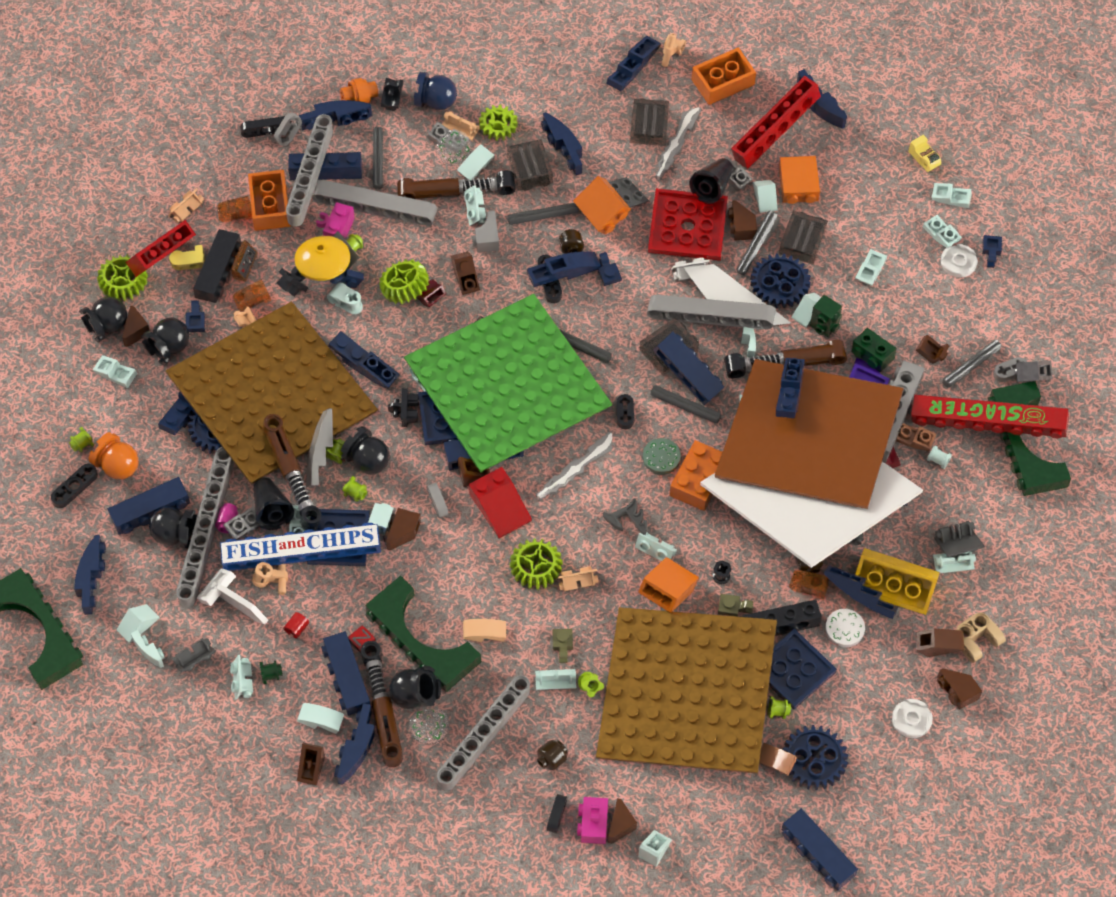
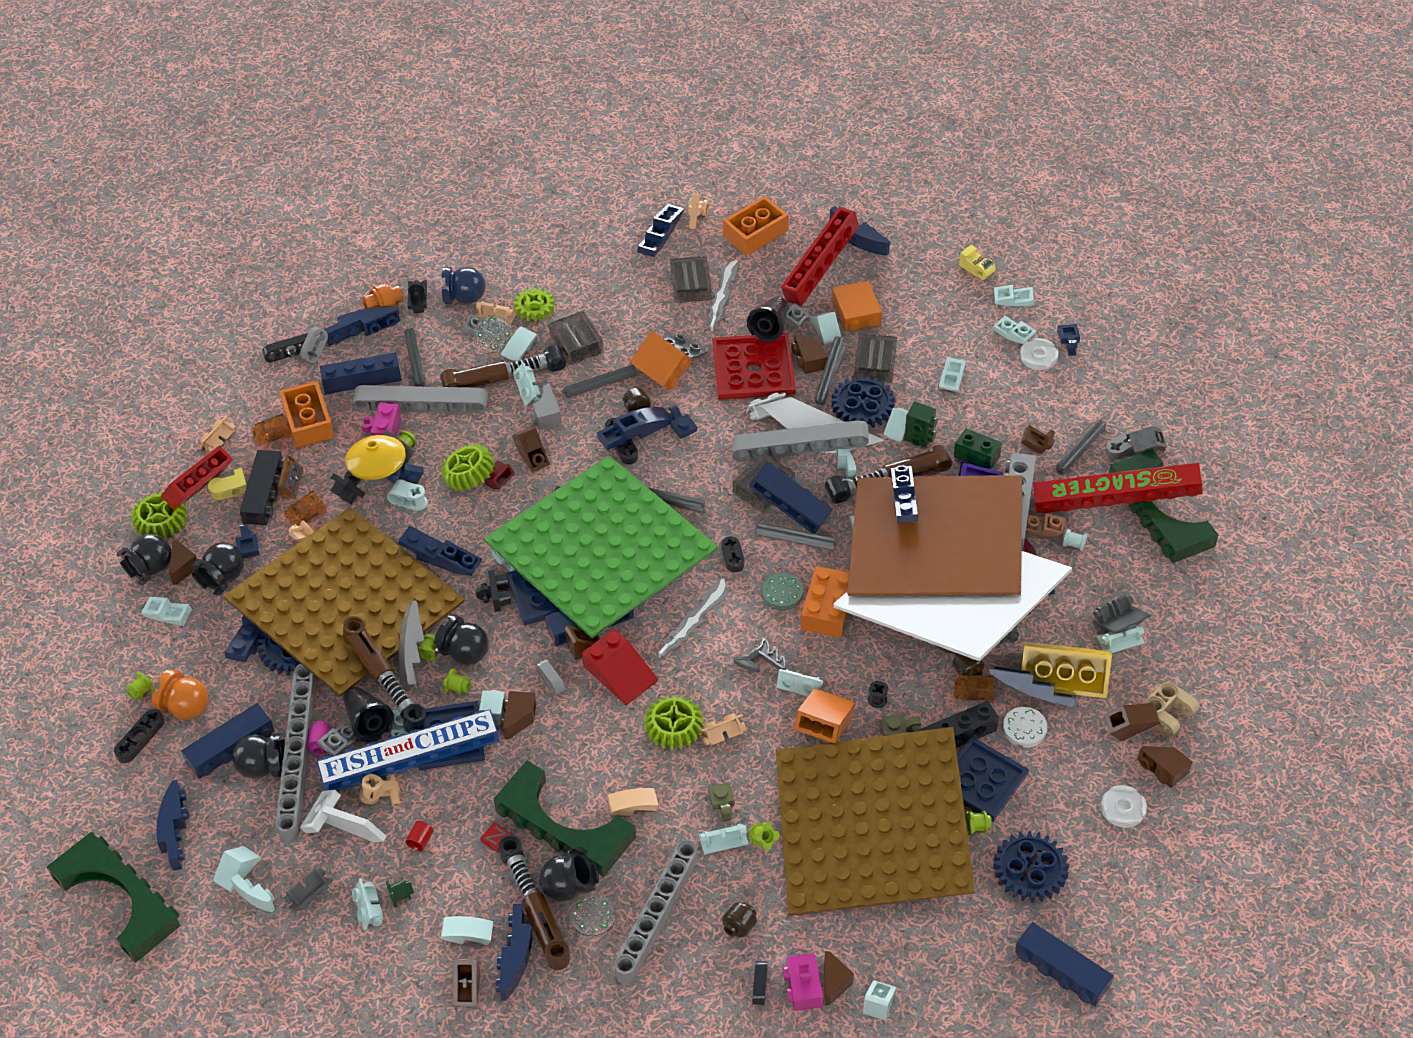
camera: 10 degrees left, 10 degrees down
(309, 170) = (345, 375): light grey beam -> none
(346, 672) = (486, 876): dark blue brick -> none
(563, 139) = (604, 307): dark blue slope -> none
(777, 759) = (992, 875): nougat slope -> none

